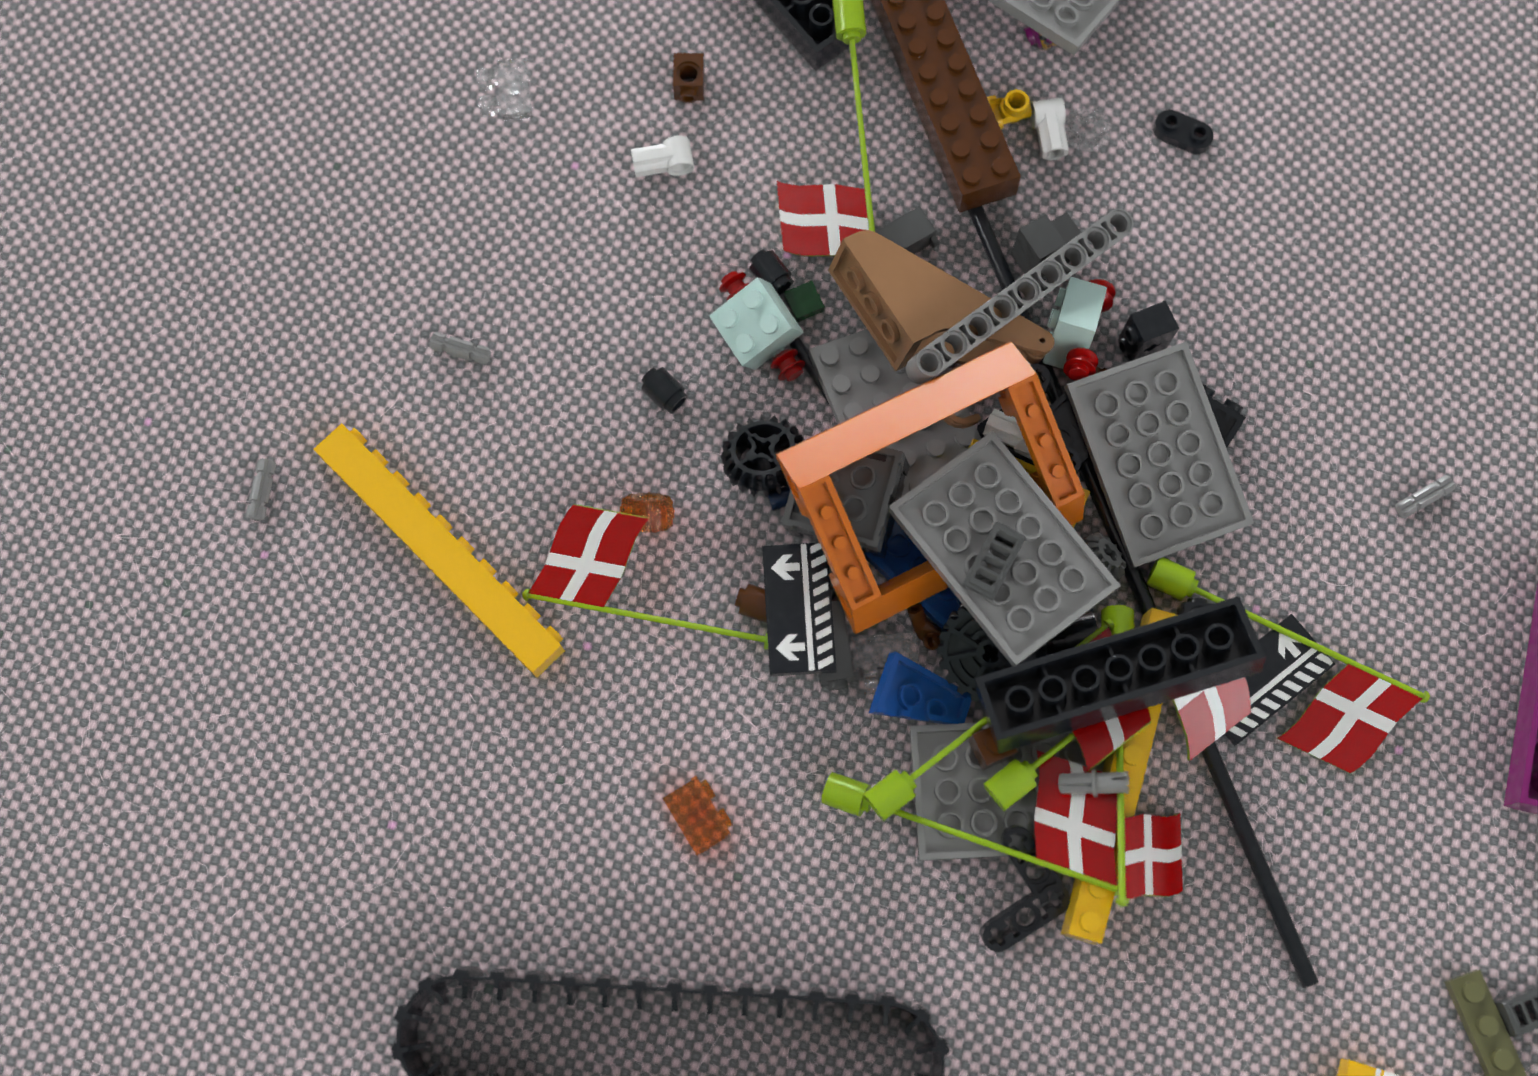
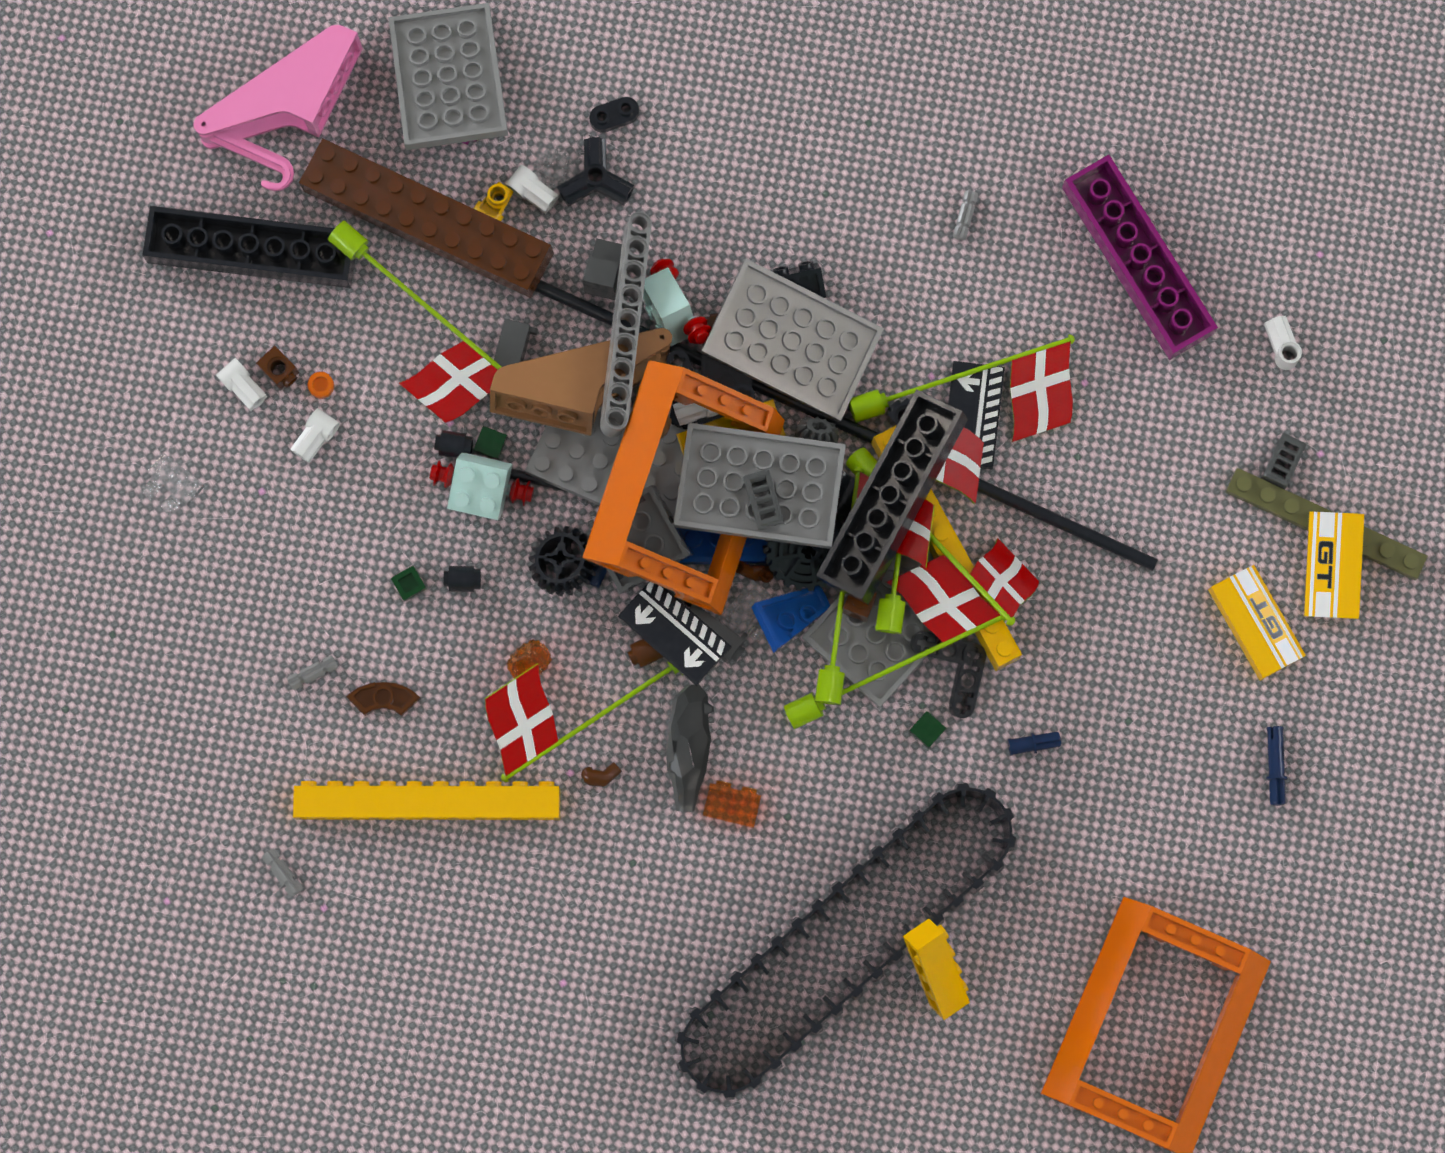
camera: 45 degrees left, 5 degrees up
(498, 425) = (383, 696): none -> reddish brown tile
(607, 675) = (598, 777): none -> reddish brown arm
(615, 352) = (408, 583): none -> dark green tile
(646, 58) = (238, 380): none -> white piece
(711, 125) = (320, 385): none -> orange tile
(729, 703) = (687, 725): none -> dark grey piece
(944, 925) = (927, 729): none -> dark green tile
(1032, 1038) = (1034, 743): none -> dark blue axle
(1094, 783) = (935, 570): light grey axle -> none
(1127, 154) = (595, 162): none -> black piece
(1148, 331) = (715, 269): black brick -> none

